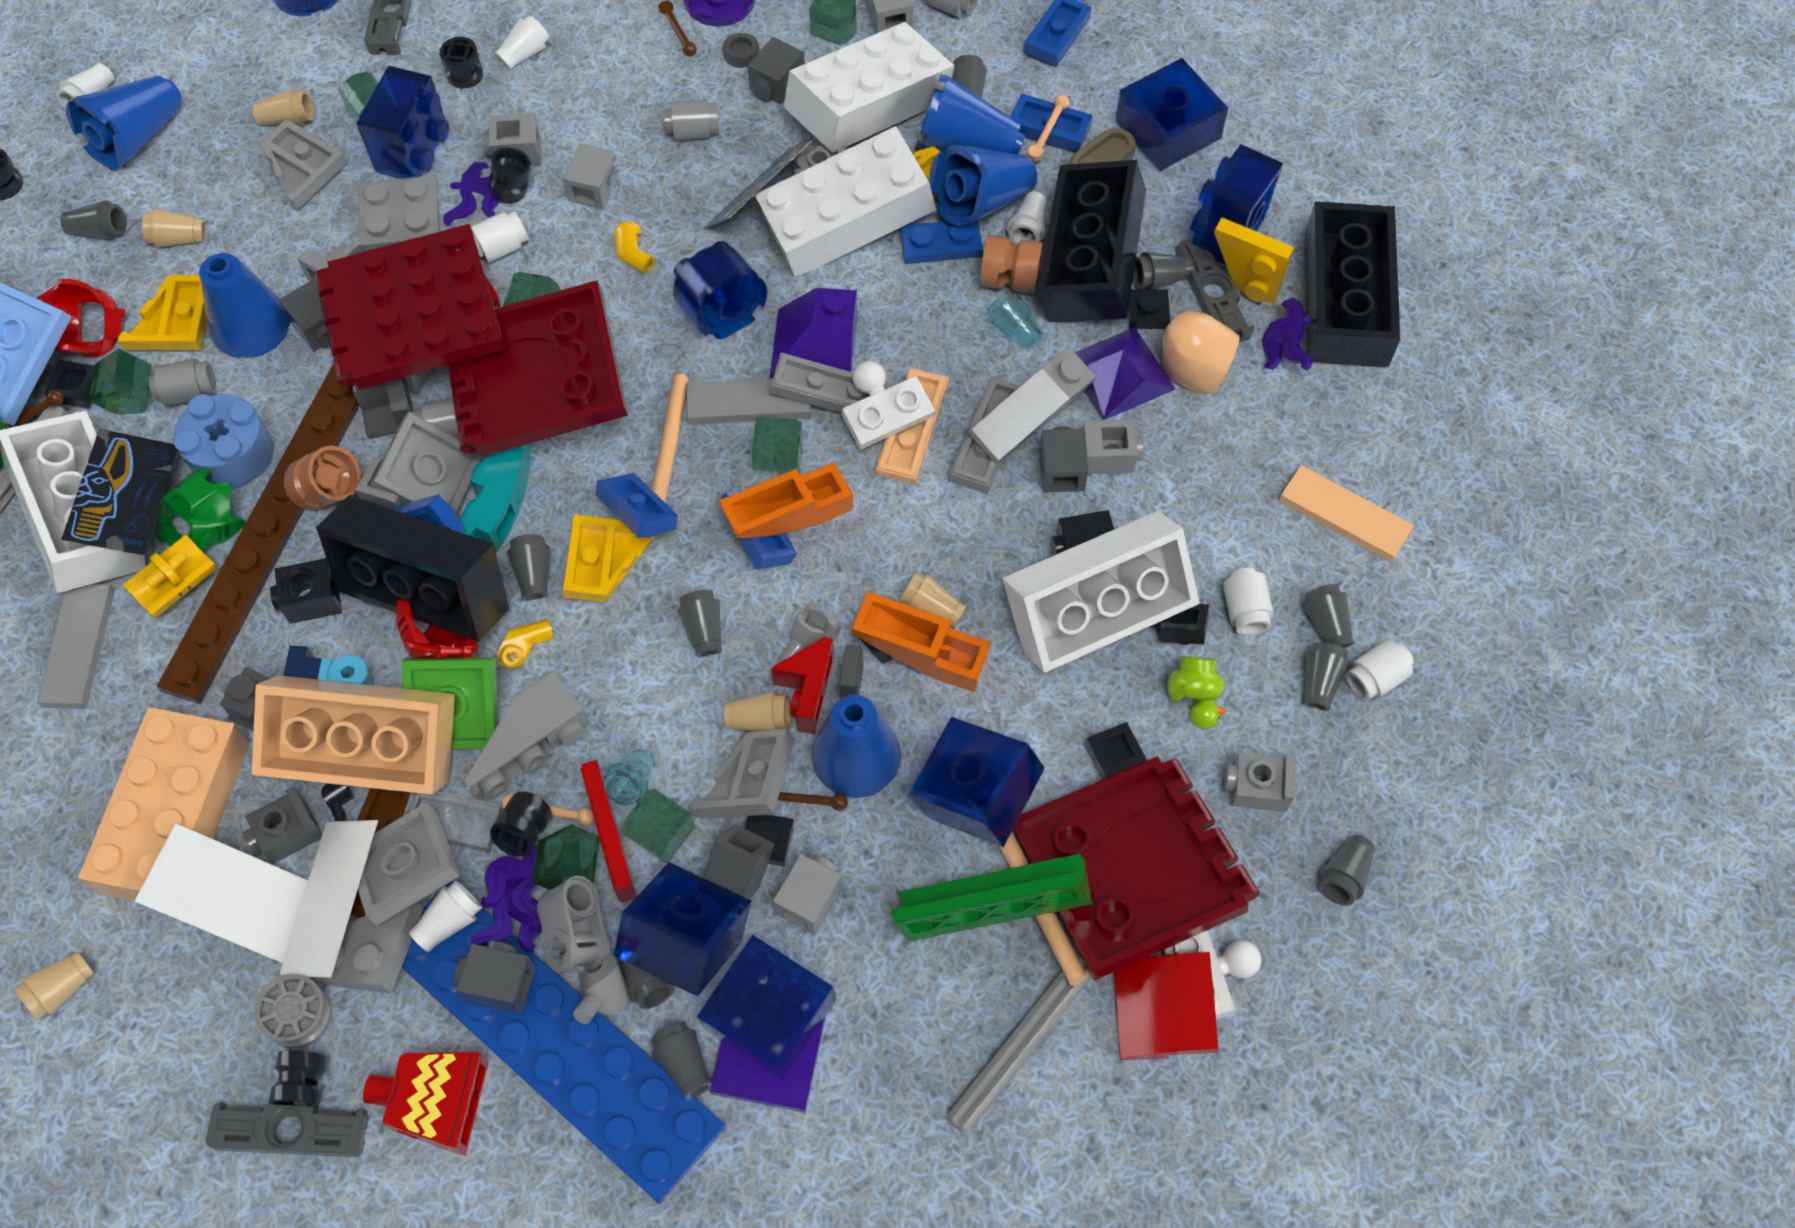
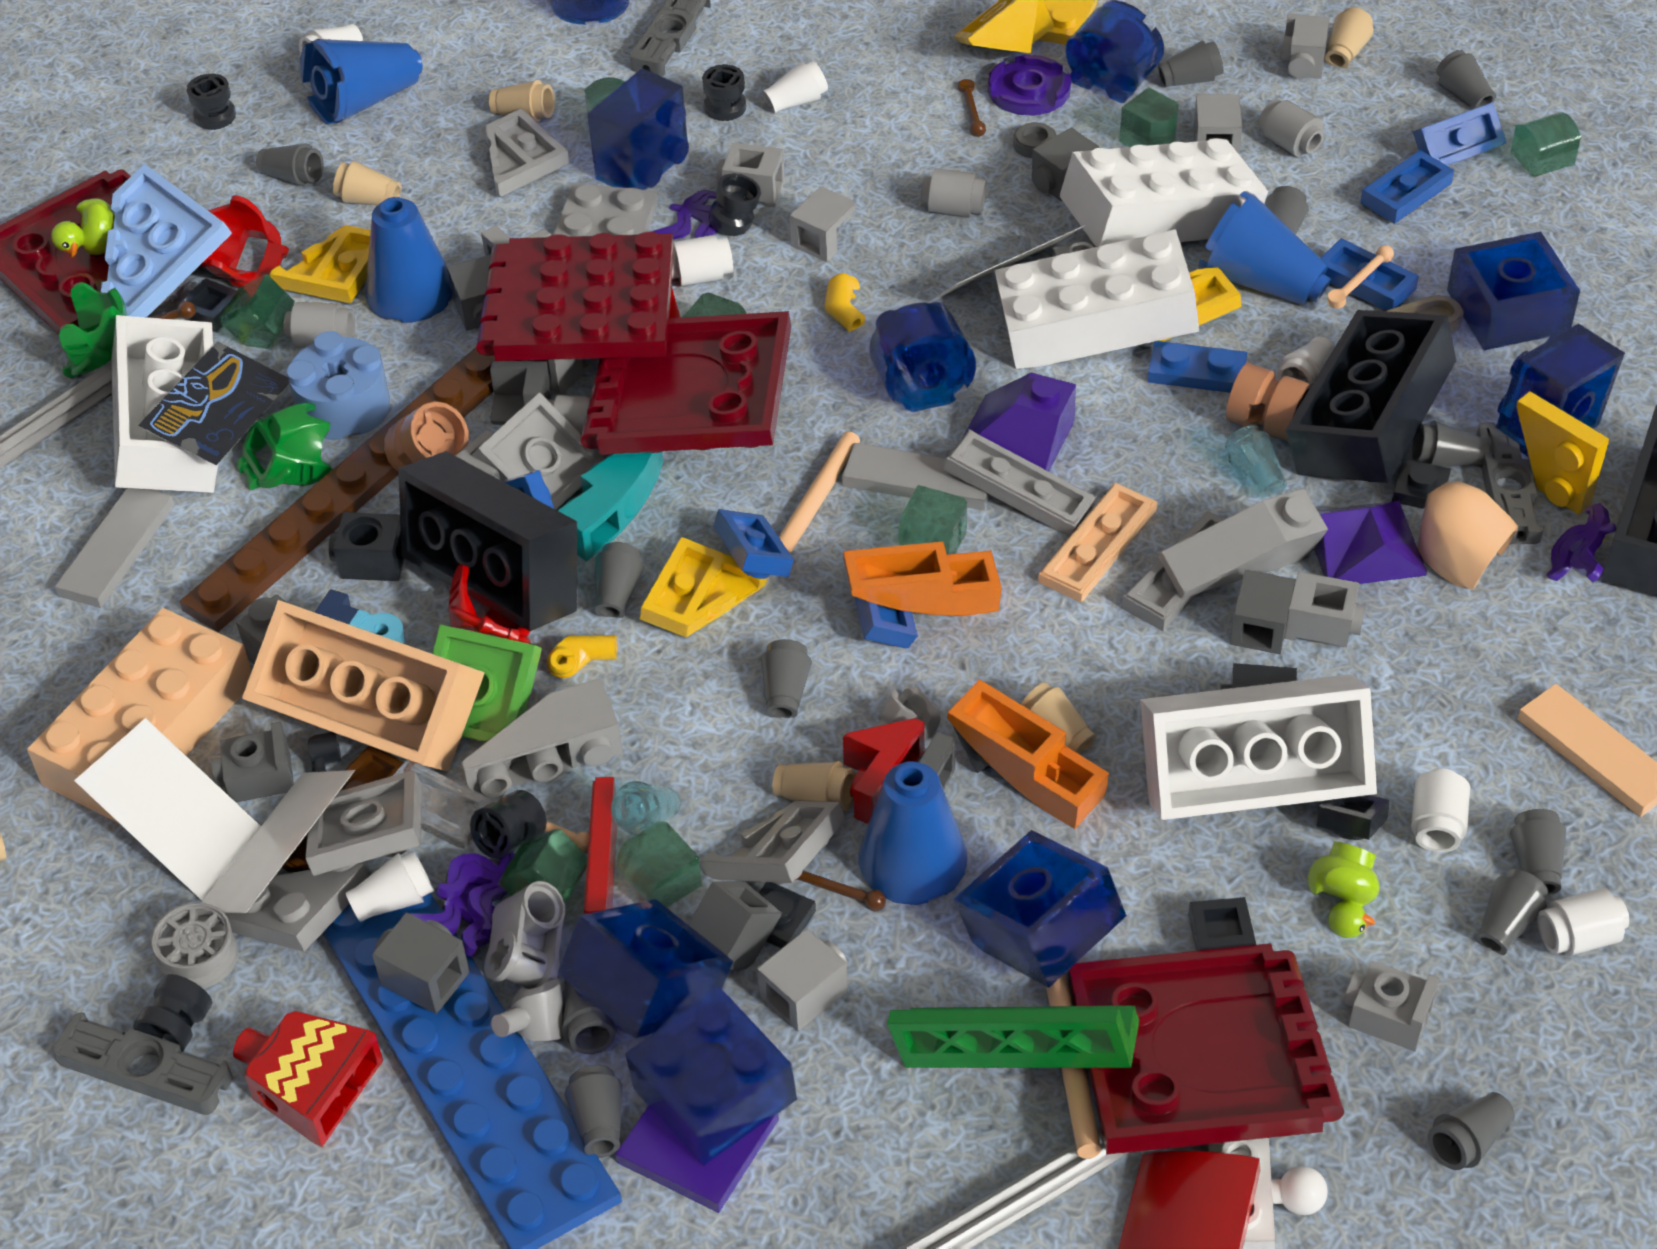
camera: 20 degrees right, 15 degrees down
(169, 576) = (234, 498): yellow hips -> none
(886, 409) = (1068, 513): white plate -> none
(978, 182) = (1259, 309): blue cone -> none

